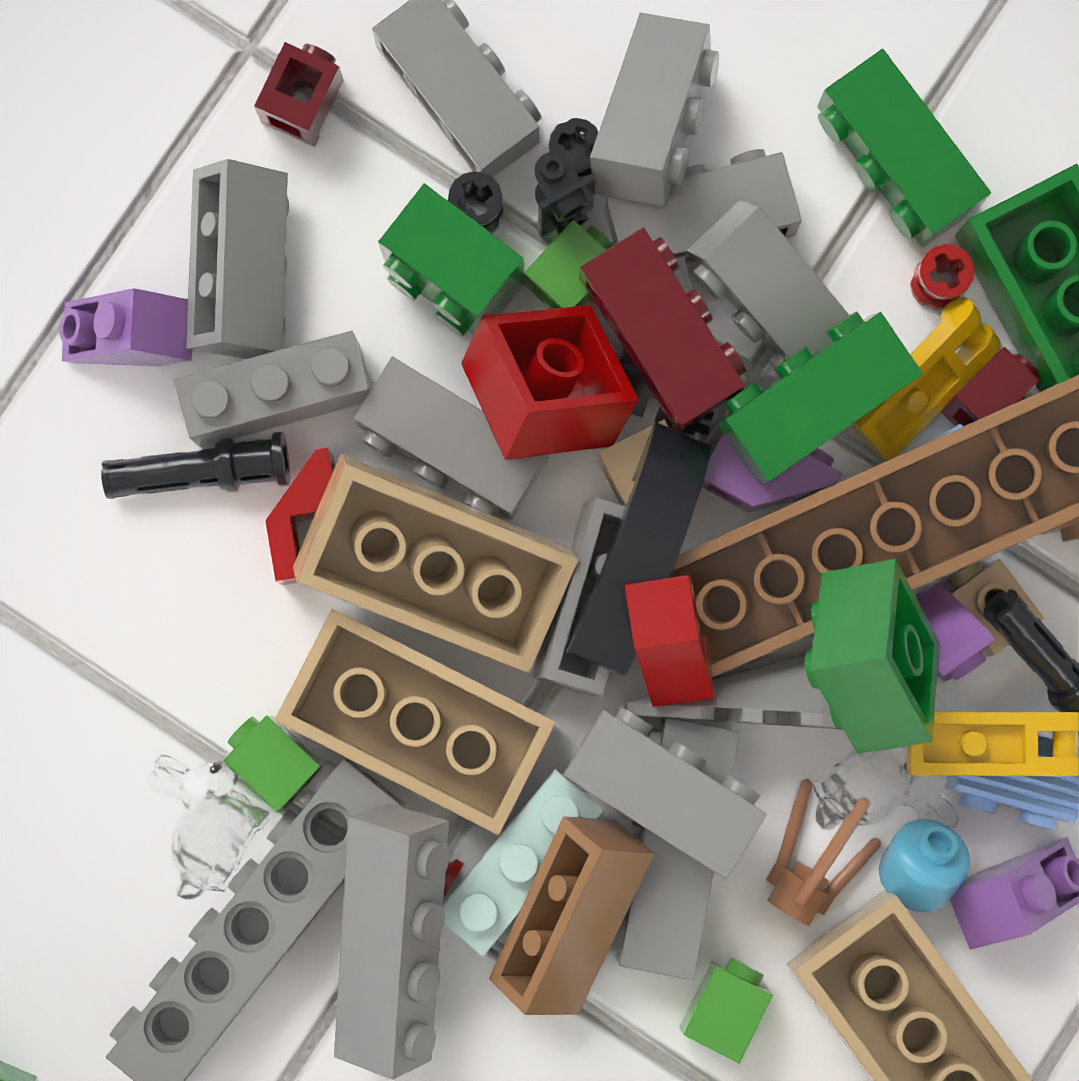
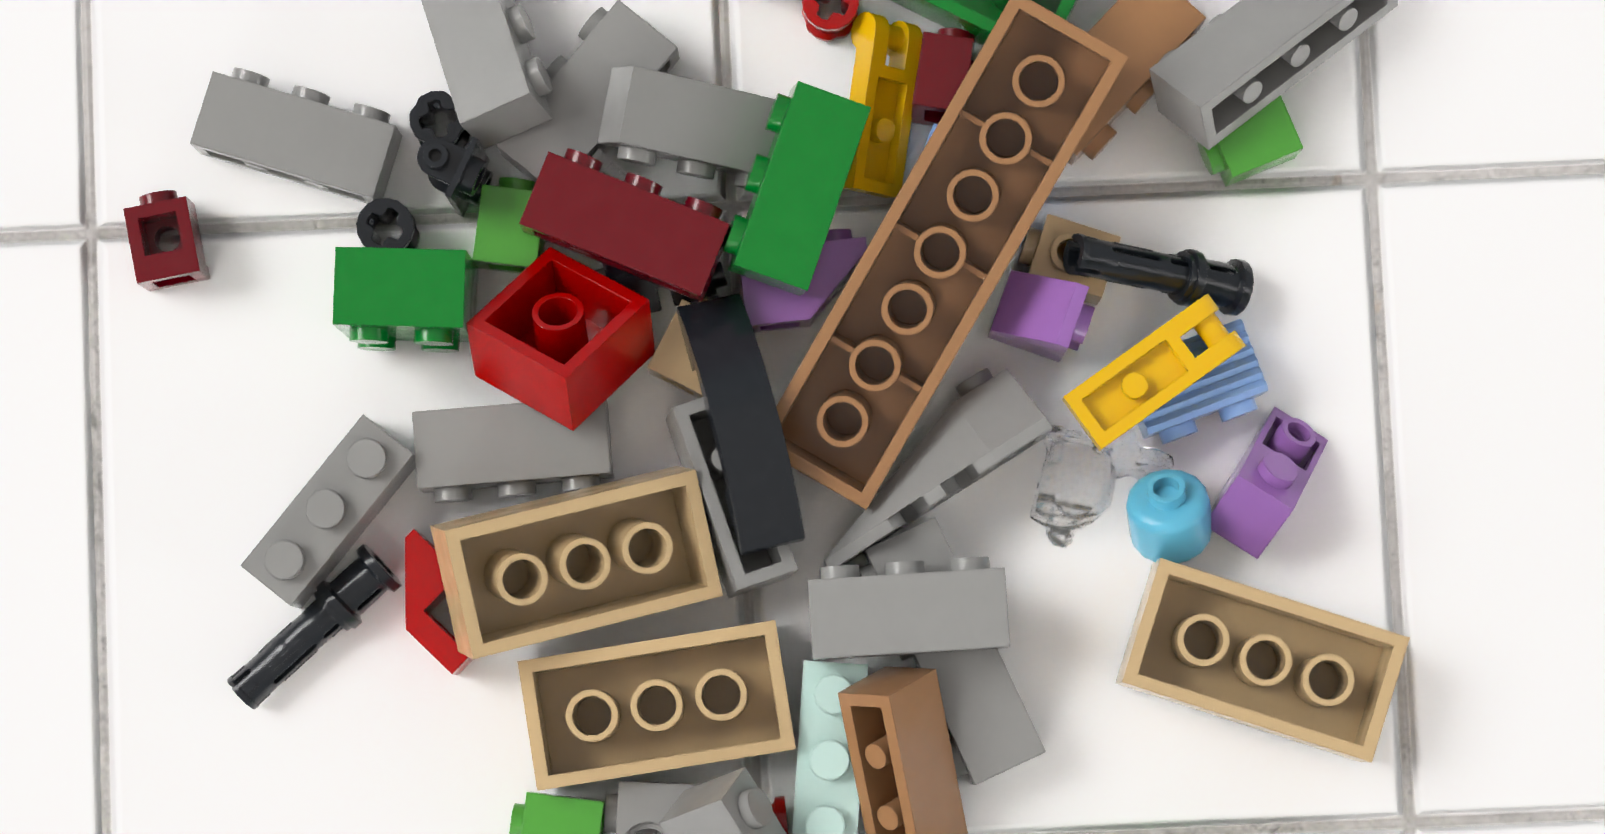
camera: 35 degrees left, 0 degrees up
(125, 329) = (166, 552): medium lavender slope -> none
(237, 259) = (218, 425): light grey brick -> none
(670, 641) = (821, 483): red slope -> none
(727, 1009) = (1092, 756): bright green brick -> none
(803, 889) = (1084, 610): nougat plant -> none
(874, 657) = (997, 373): green brick -> none

